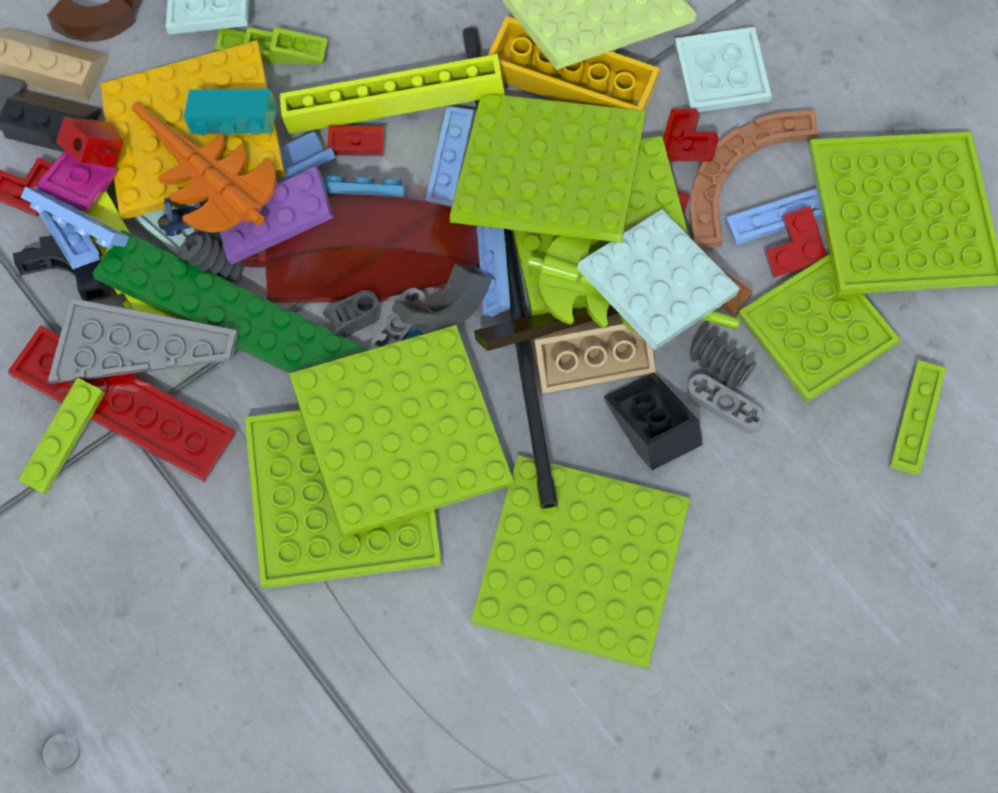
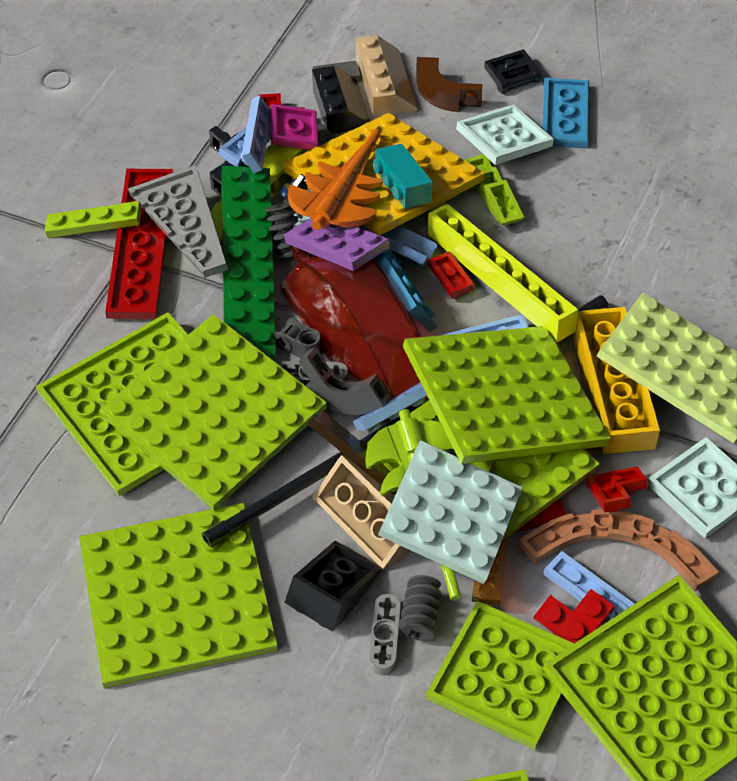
camera: 60 degrees right, 15 degrees down
(90, 141) = (327, 119): red torso -> none

